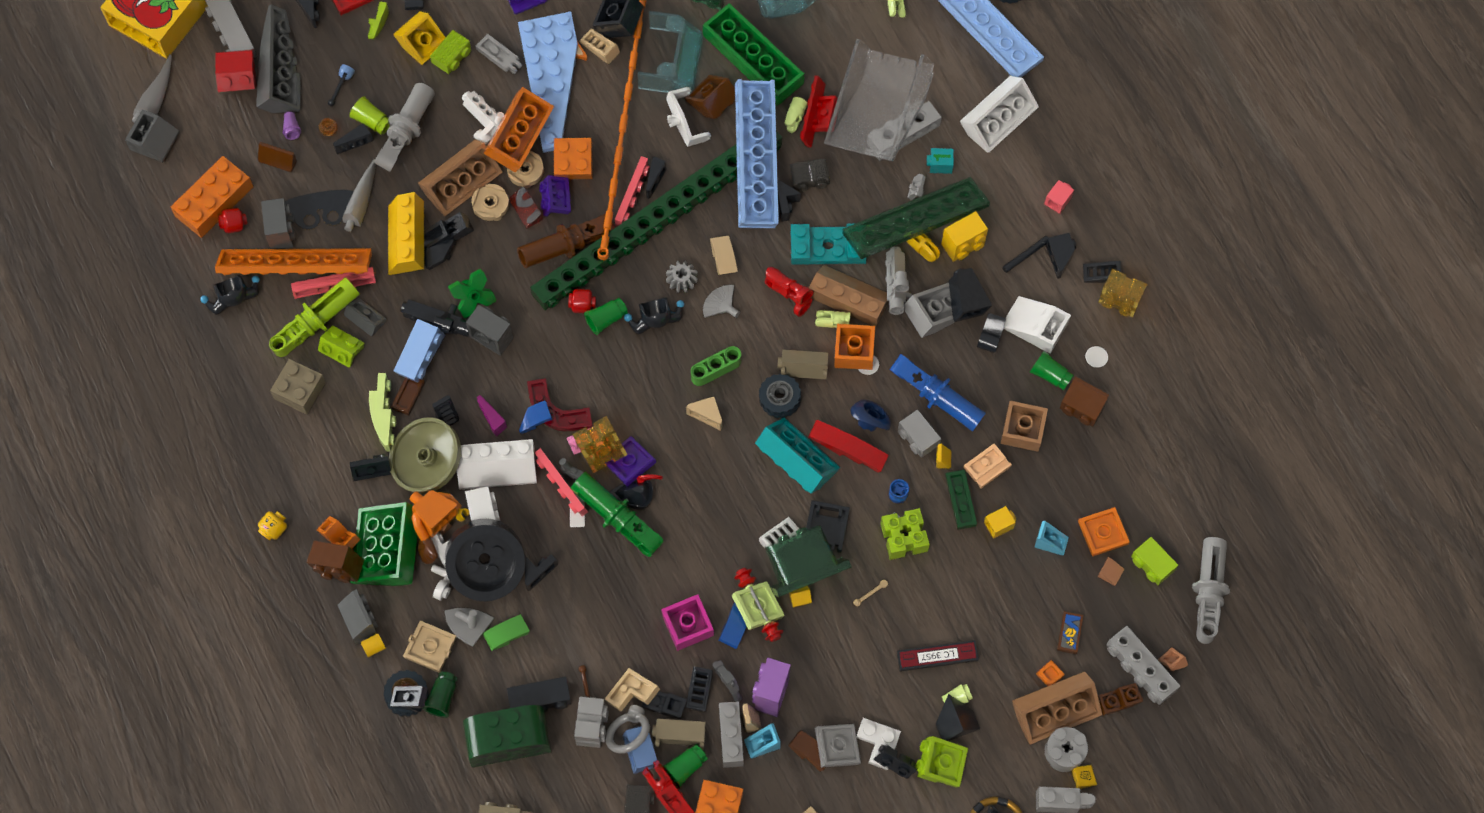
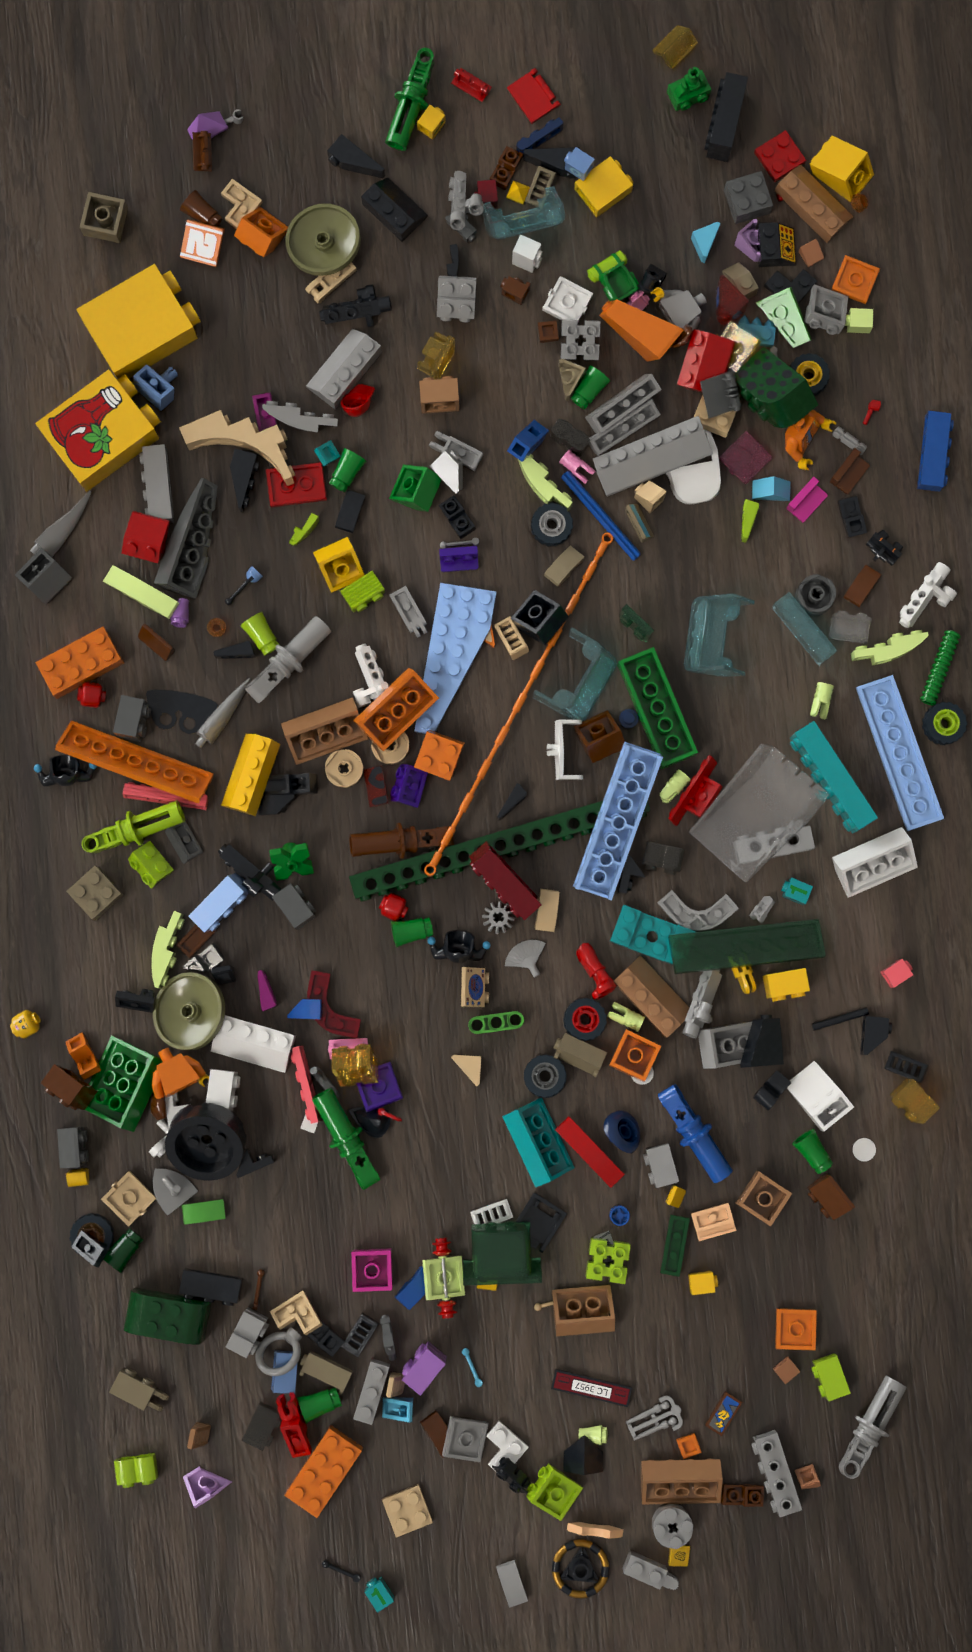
camera: 20 degrees right, 15 degrees up
(247, 119) = (141, 592): none -> yellowish green slope
(423, 409) = (206, 960): none -> slope
(635, 186) = (490, 805): coral plate -> none
(674, 236) = (505, 880): none -> dark red brick
(682, 341) = (473, 987): none -> tan slope
(731, 73) = (628, 718): none -> dark blue plate
(796, 324) = (595, 1013): none -> black wheel
(829, 691) = (478, 1382): none -> medium azure hinge
(846, 215) = (695, 919): none -> light grey plate
(901, 587) = (583, 1310): none -> medium nougat slope
(950, 65) = (832, 777): none -> teal brick
(994, 781) = (595, 1530): none -> light nougat tile
(1023, 646) = (675, 1410): none -> light grey piece
(1051, 539) = (743, 1318): medium azure slope -> none

